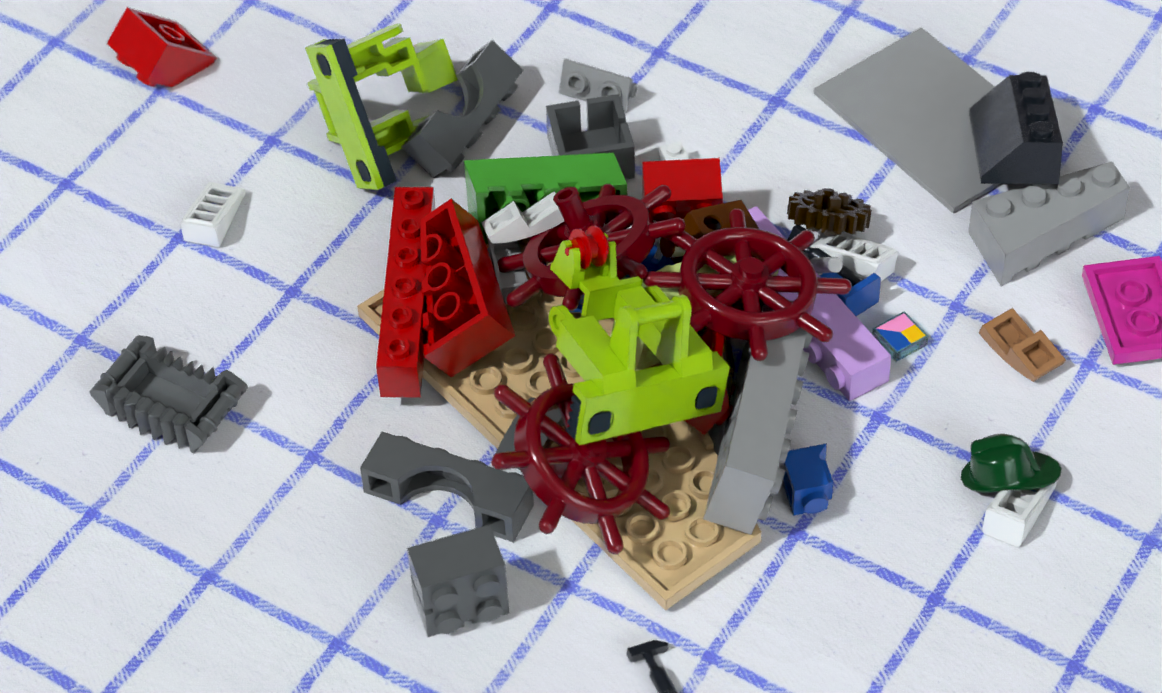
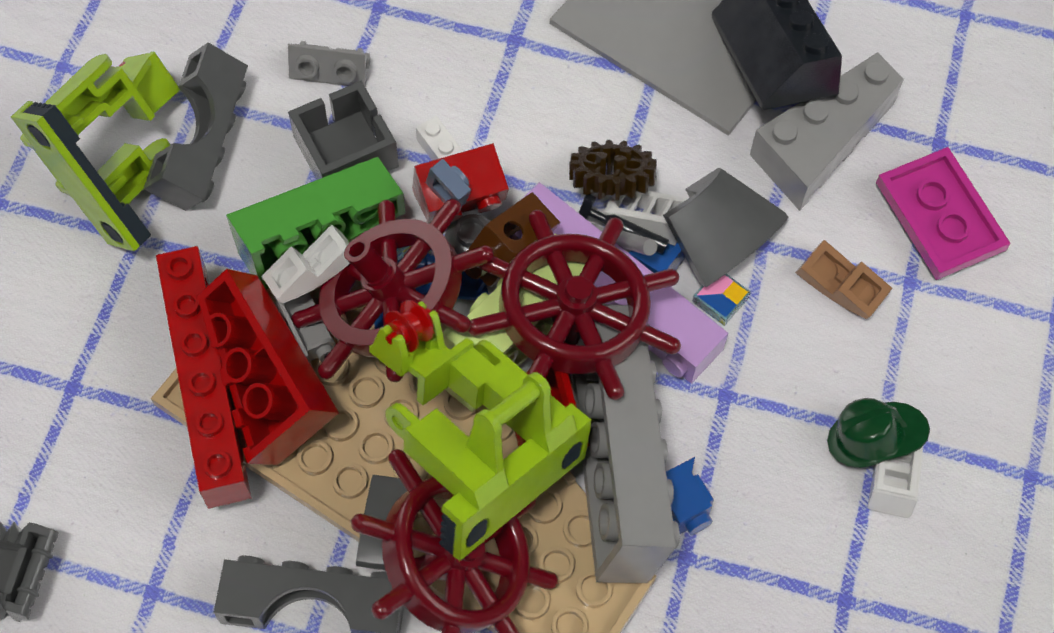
camera: 20 degrees left, 15 degrees up
(666, 173) = (448, 182): none -> sand blue plate
(915, 271) = (722, 224): none -> dark grey slope

